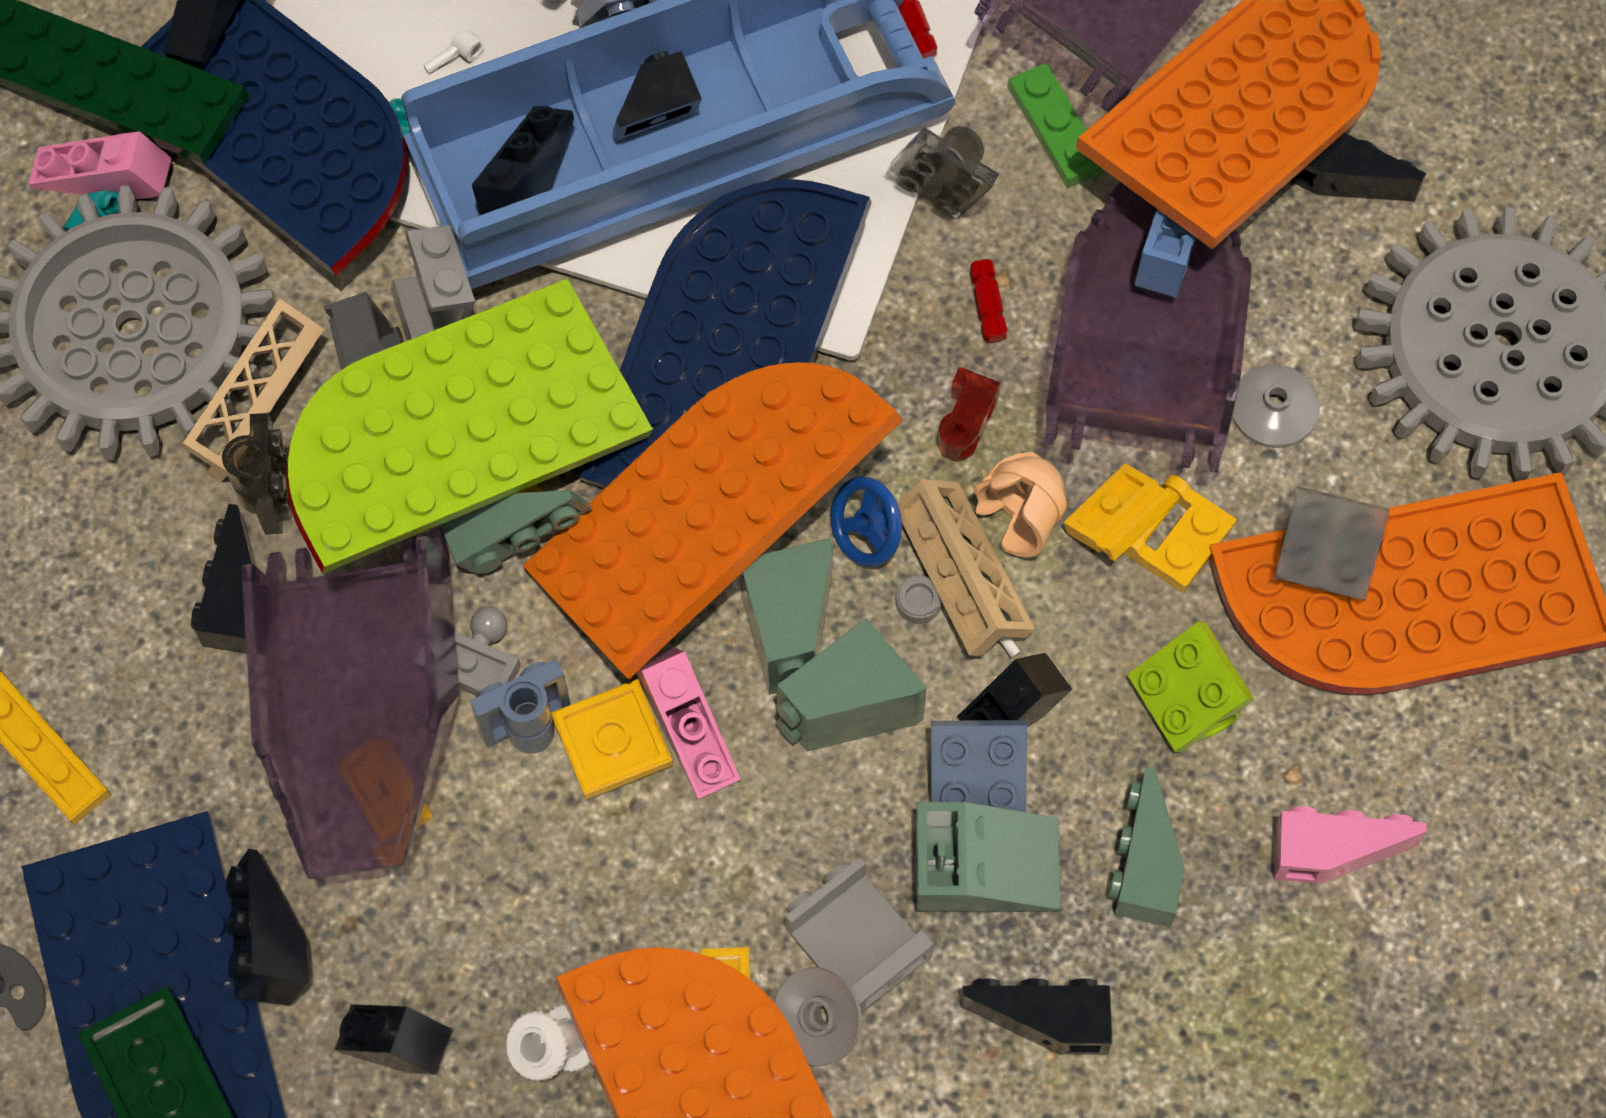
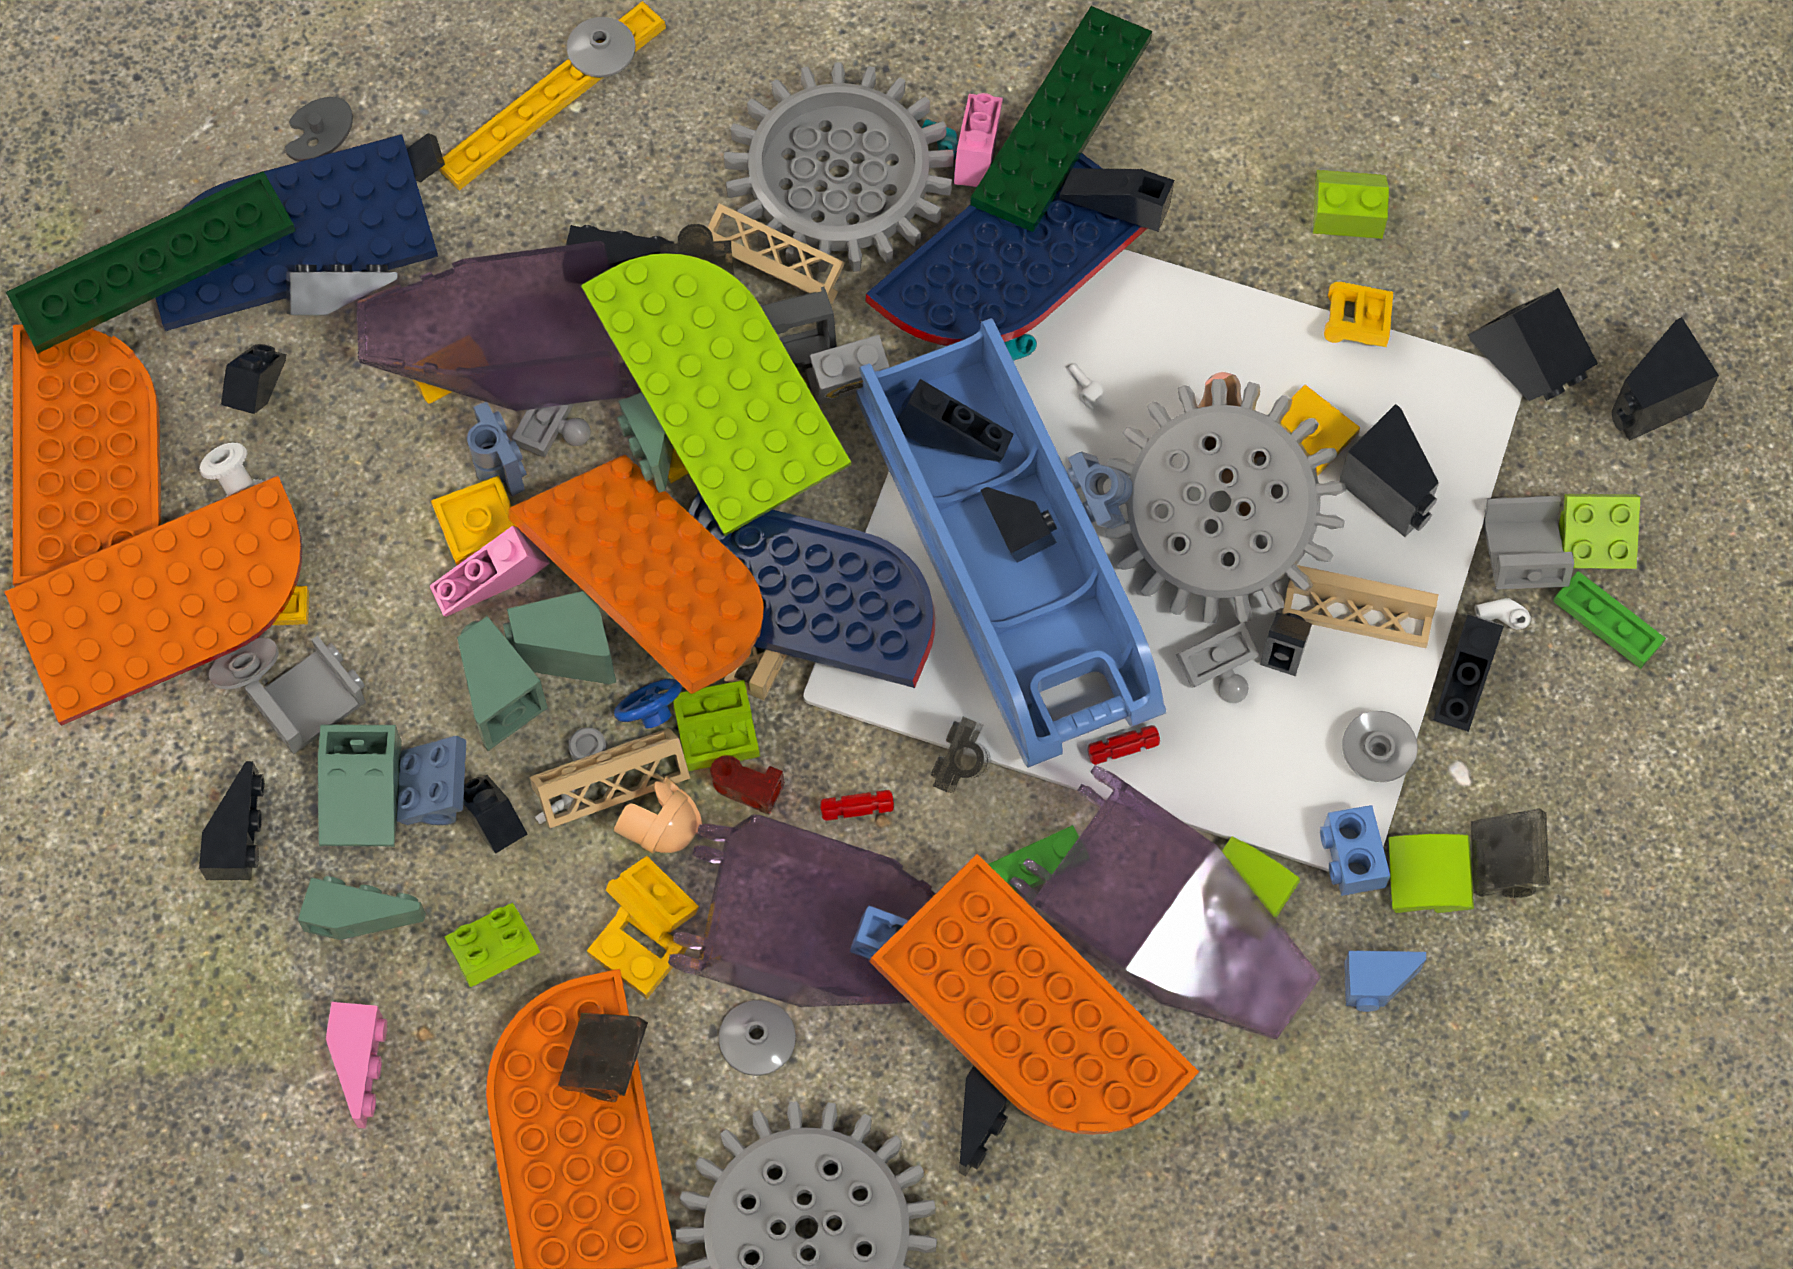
camera: 90 degrees right, 0 degrees up
(61, 830) = (425, 157): none -> black tile
(902, 455) = (716, 724): none -> lime slope

